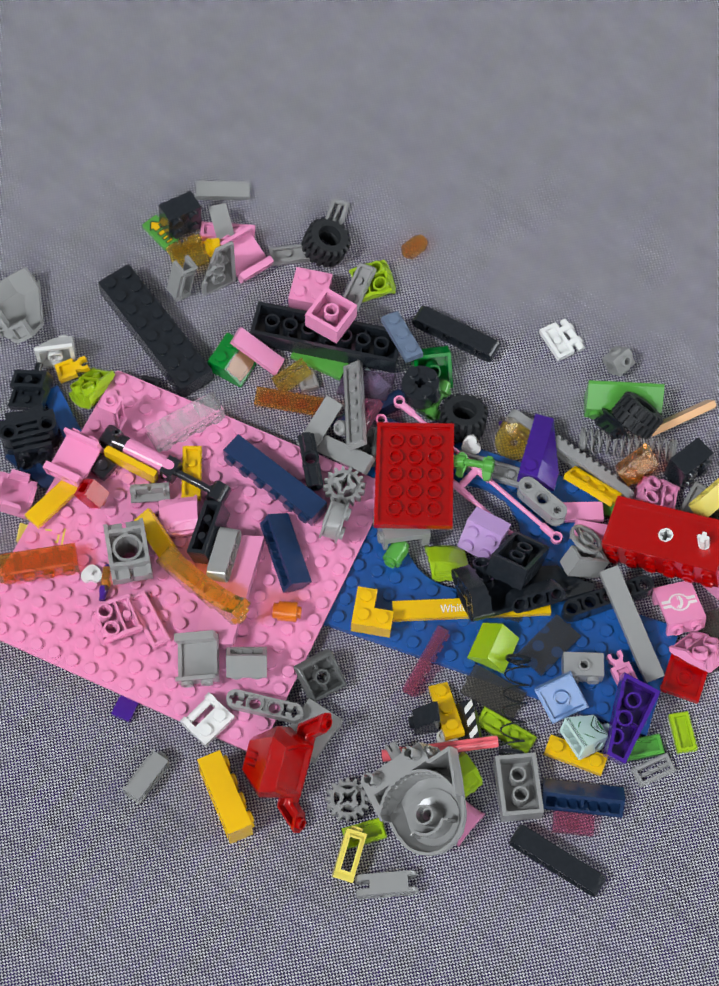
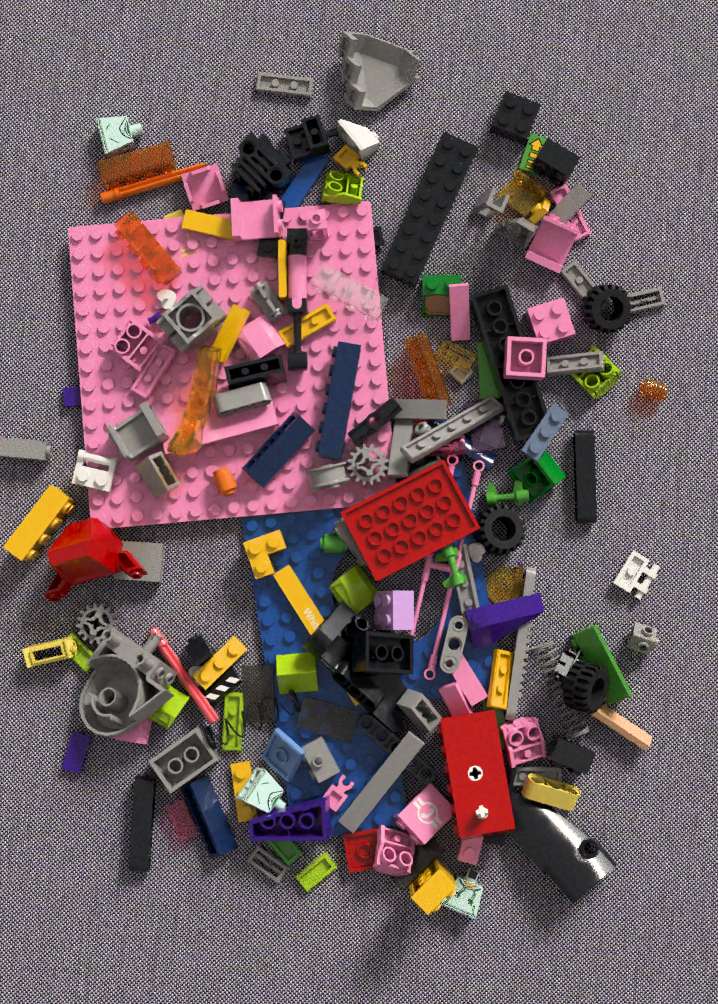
camera: 65 degrees right, 20 degrees up
(91, 493) = (234, 254): brick -> none
(122, 228) = (515, 118): none -> black brick
(223, 190) = (610, 183): light grey tile -> none
(265, 702) = (135, 510): light grey beam -> none
(331, 679) = (177, 541): dark grey brick -> none
(386, 884) = (44, 694): light grey piece -> none
(421, 387) = (496, 482): black brick -> none
(423, 665) = (252, 622): clear pink piece -> none
(457, 887) = (76, 752): none -> dark purple tile
(585, 539) = (438, 702): light grey wheel -> none
(637, 465) = (542, 709): clear orange brick -> none

